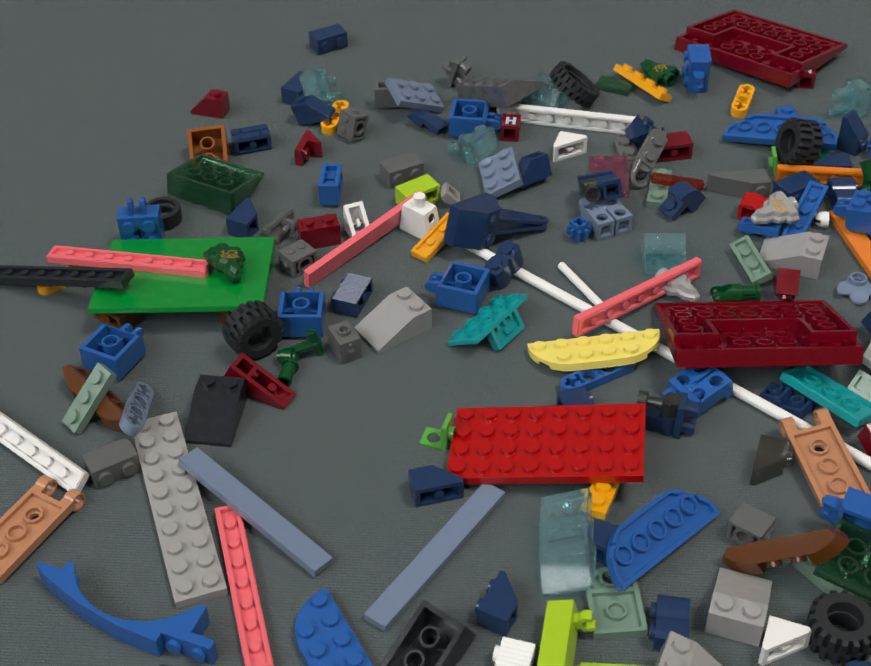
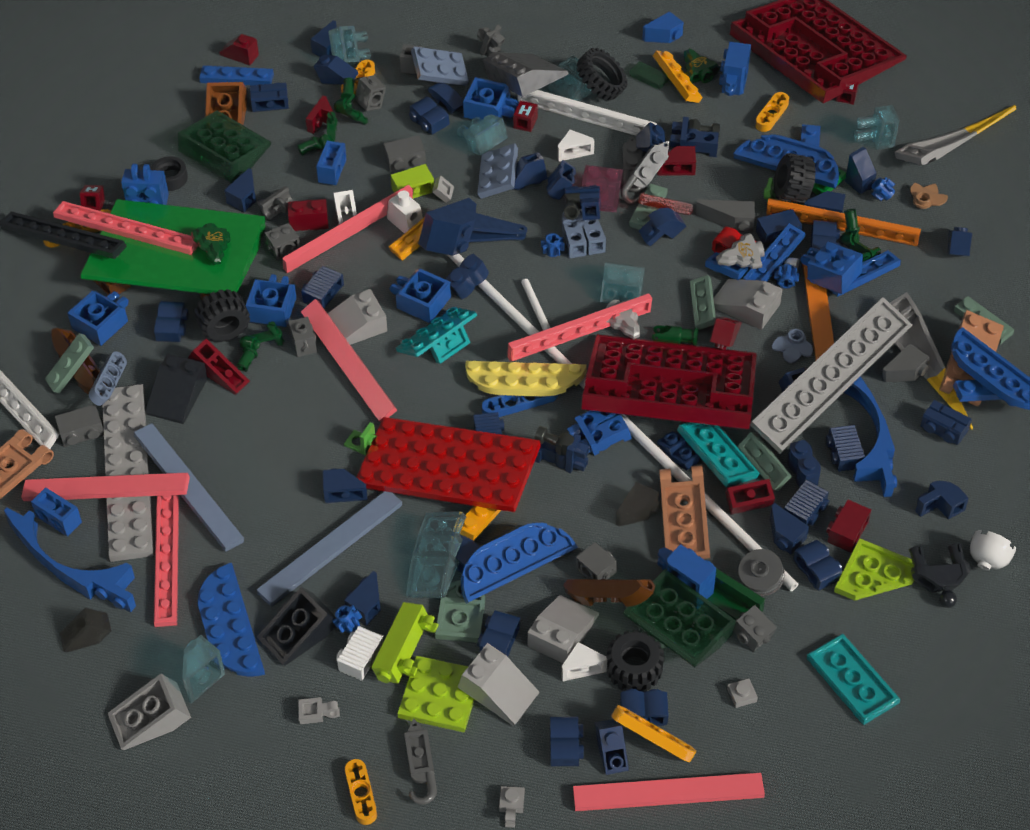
camera: 10 degrees right, 10 degrees up
(85, 239) = (92, 197): none -> dark red brick
(101, 559) = (56, 511): none -> blue brick
(155, 523) = (109, 486): none -> coral tile
(194, 346) = (170, 321): none -> dark blue brick
(230, 123) = (248, 76): none -> blue plate
(315, 169) = (319, 143): none -> dark green pin
(328, 137) = (344, 104): none -> dark green pin
(404, 361) = (349, 361): none -> coral tile
(416, 137) = (429, 115): none -> dark blue brick
(487, 630) = (347, 618): none -> blue gear
(567, 172) = (560, 179): none -> dark blue brick
(614, 49) = (663, 29): none -> blue slope
(676, 122) = (694, 134): none -> dark blue hips
(824, 226) = (786, 276): none -> blue gear

